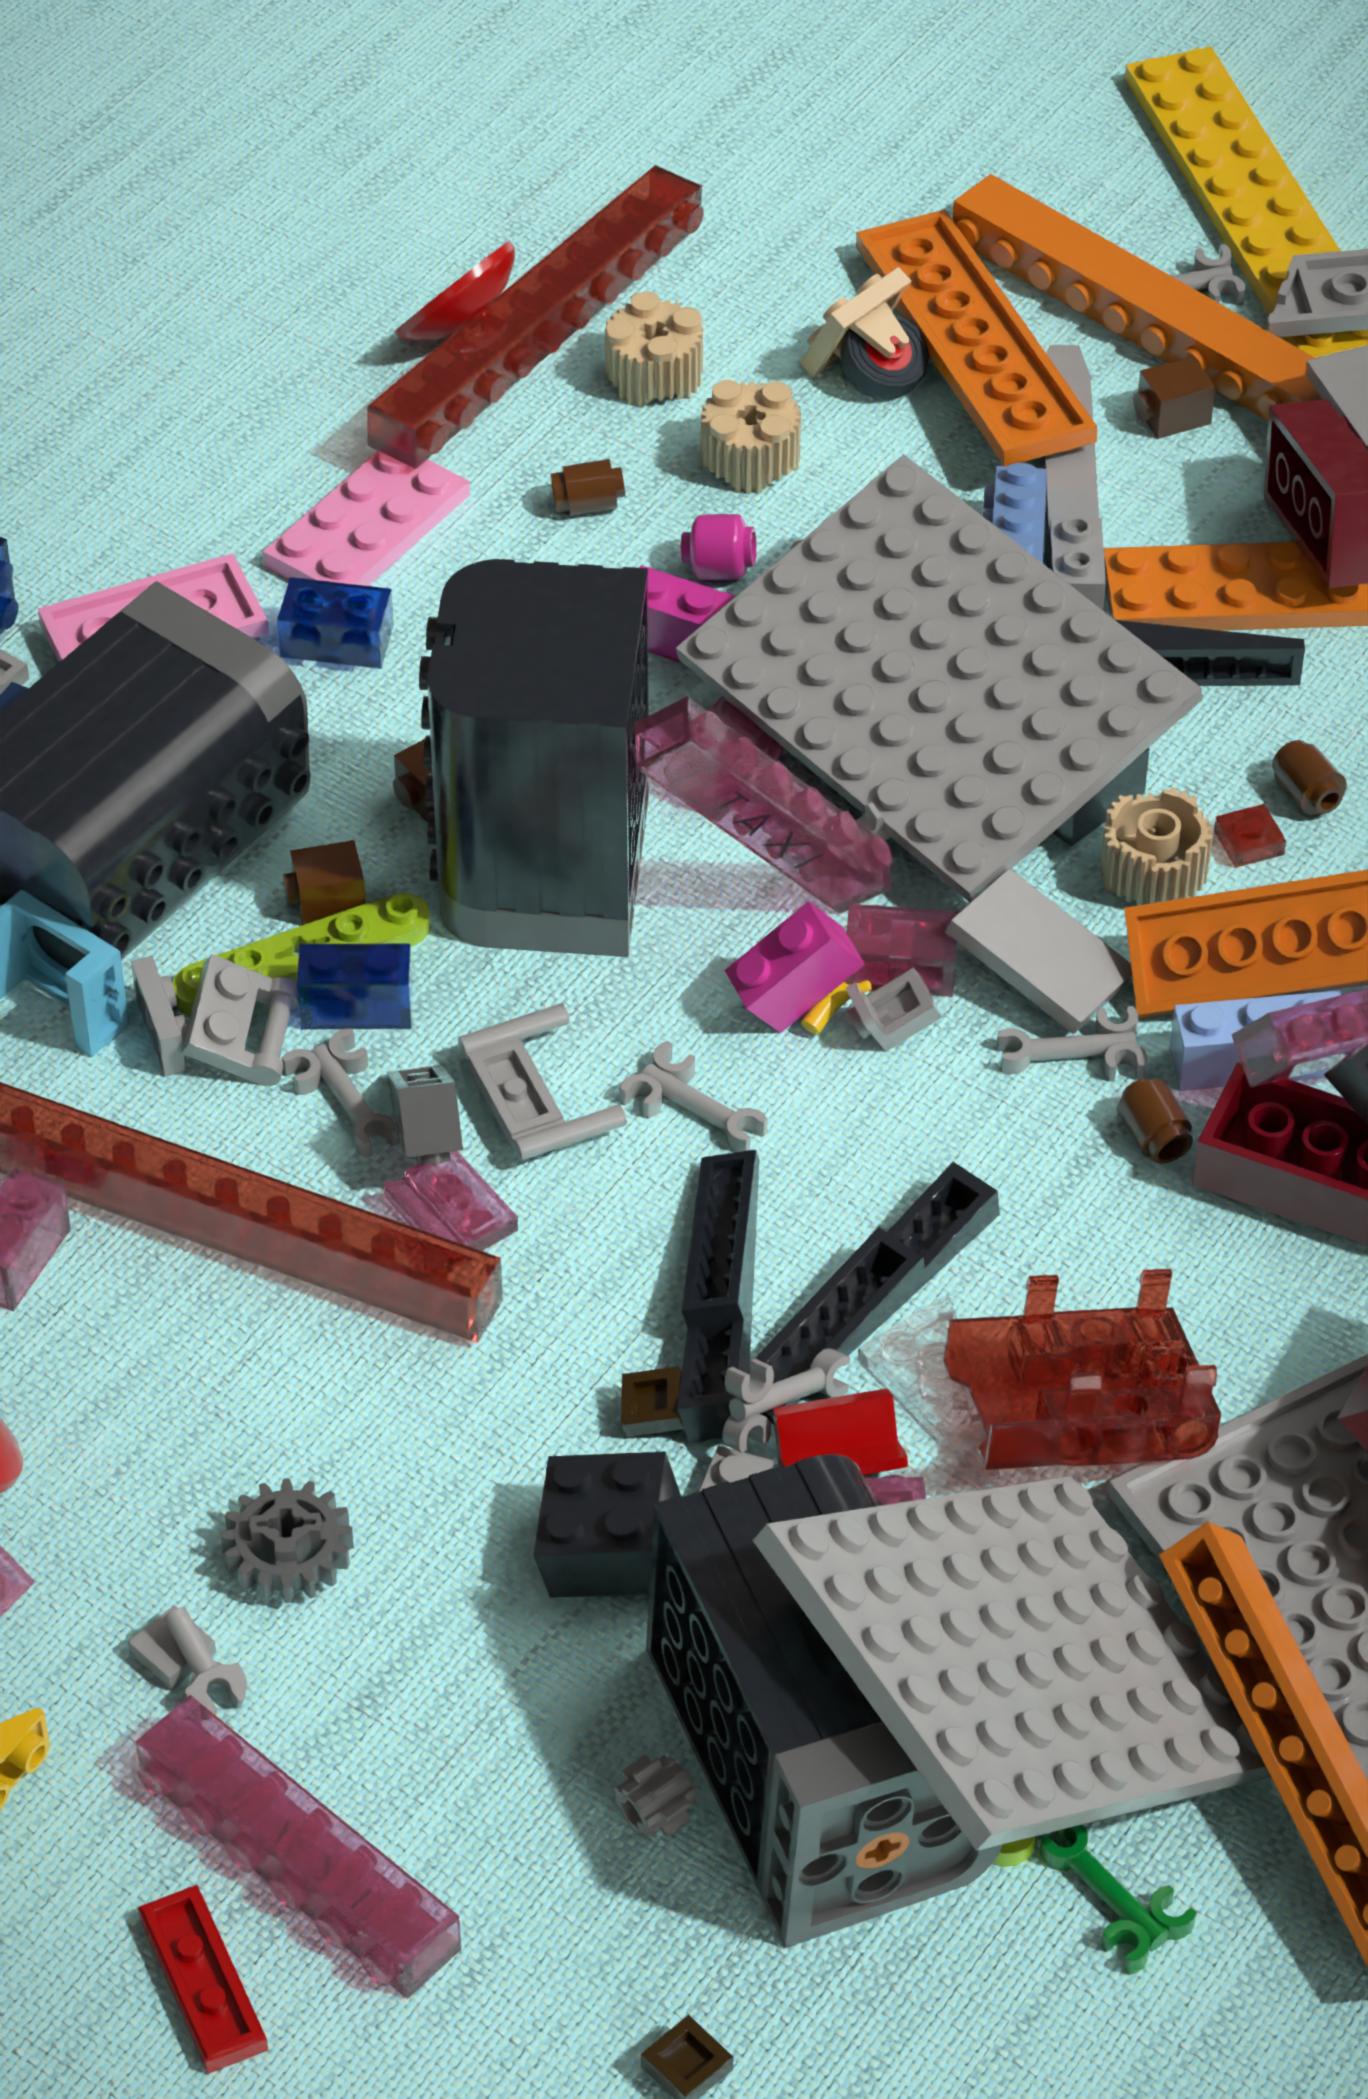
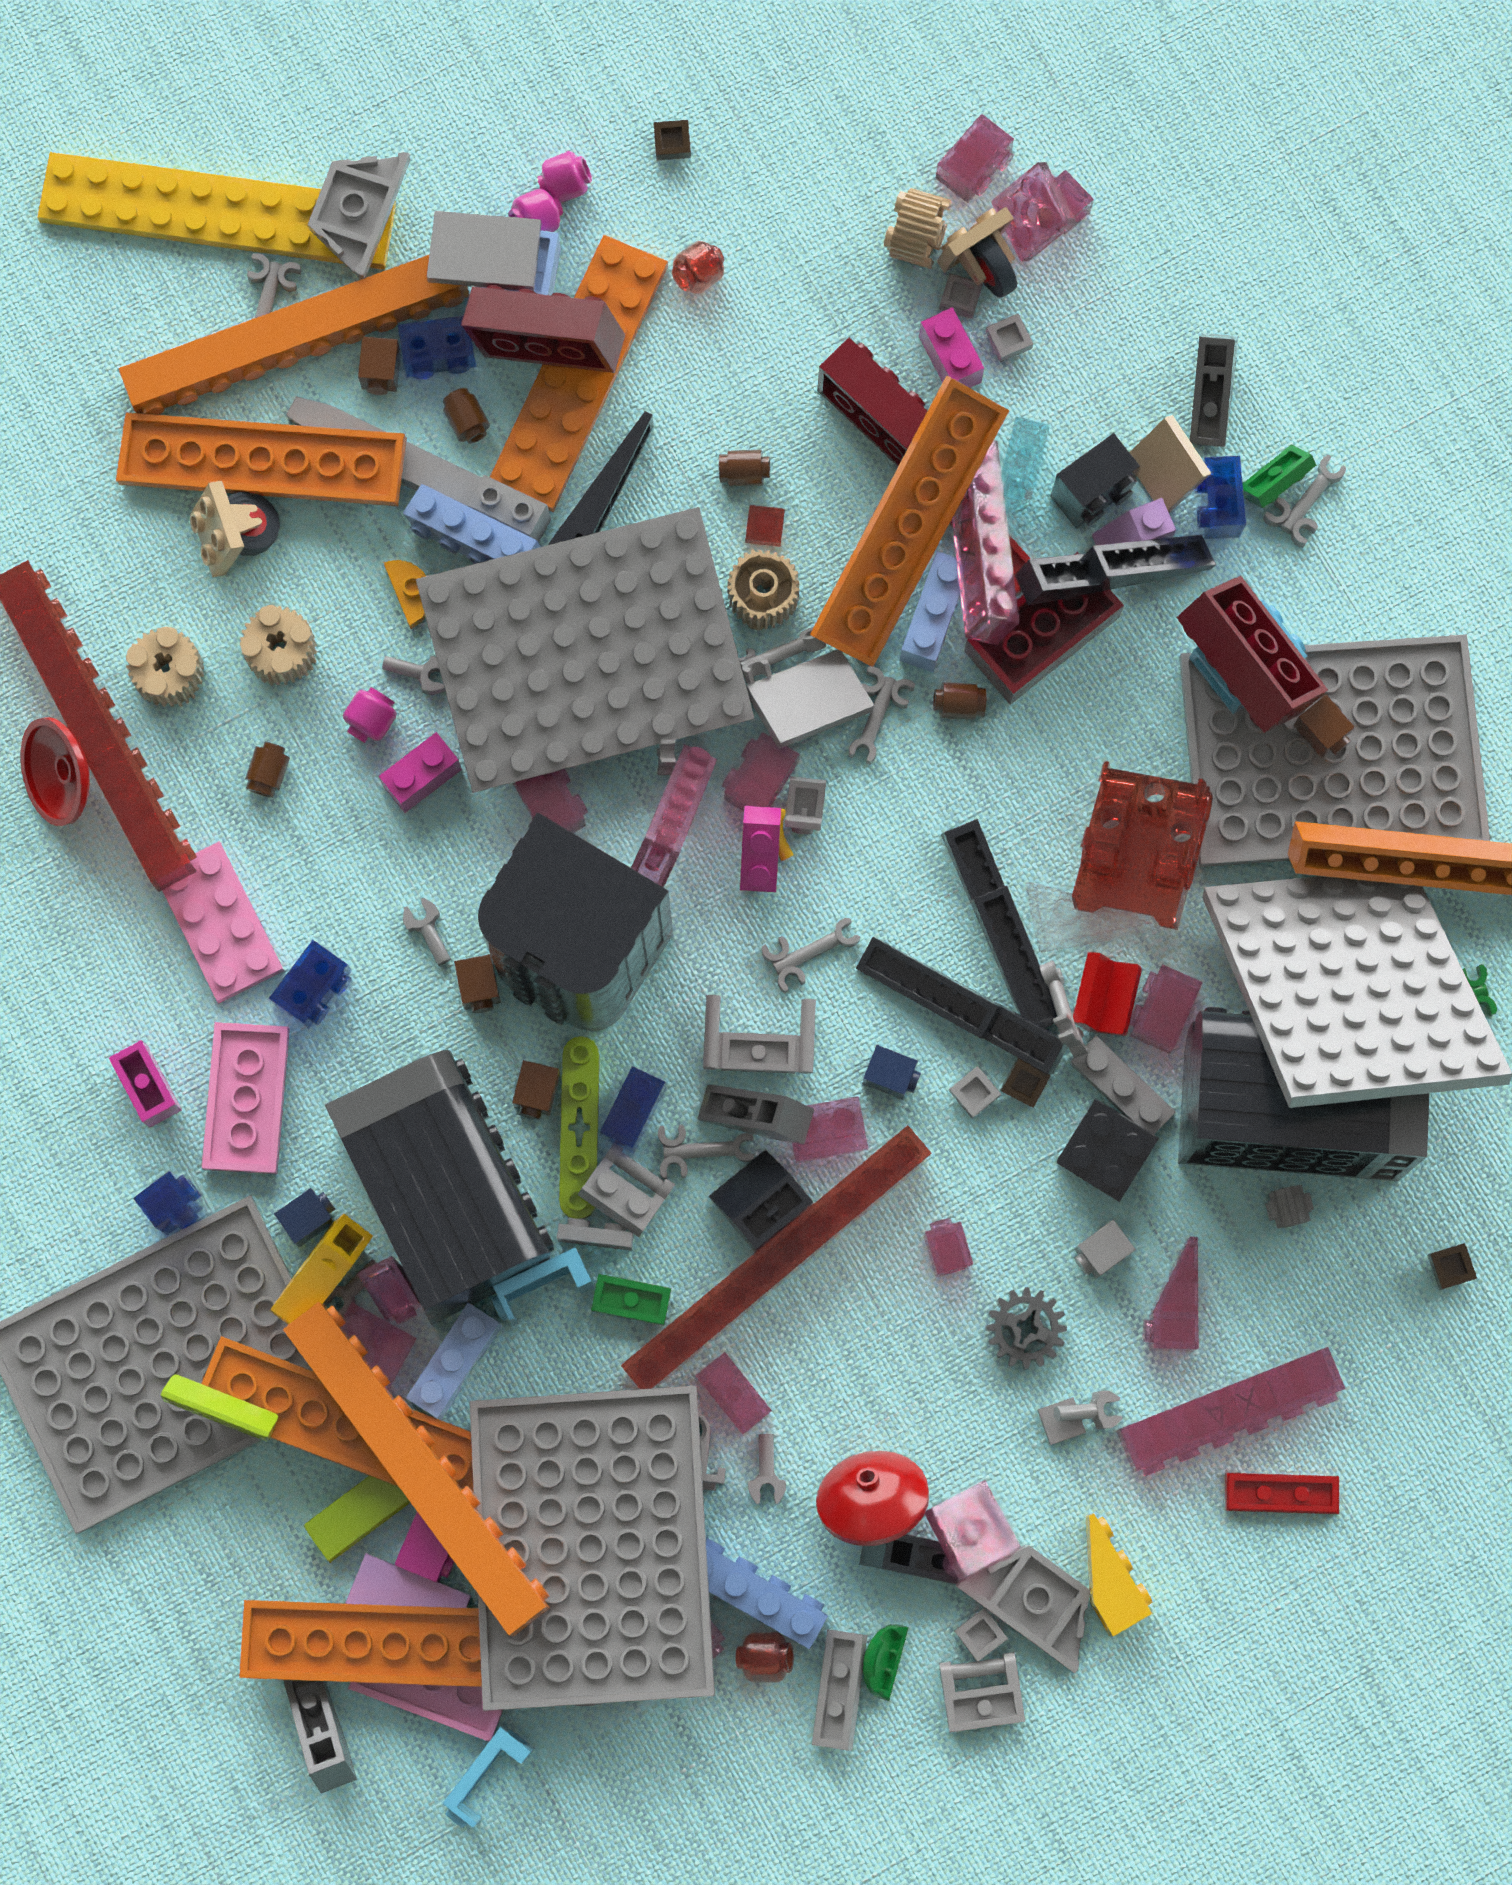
camera: 65 degrees left, 30 degrees up
(92, 1078) = (631, 1299): none -> green plate
(115, 515) = (145, 1084): none -> dark pink brick
(307, 1157) = (761, 1200): none -> black slope
(355, 1403) = (947, 1247): none -> clear pink brick
(425, 1711) = (1175, 1312): none -> clear pink slope
(457, 1589) = (1103, 1250): none -> light grey brick
(573, 1241) = (891, 1072): none -> dark blue brick
(603, 1350) = (974, 1092): none -> light grey plate
(1073, 896) = (760, 664): none -> light grey bar
(1170, 495) = (465, 416): none -> reddish brown brick
(1230, 434) = (436, 347): none -> clear blue brick

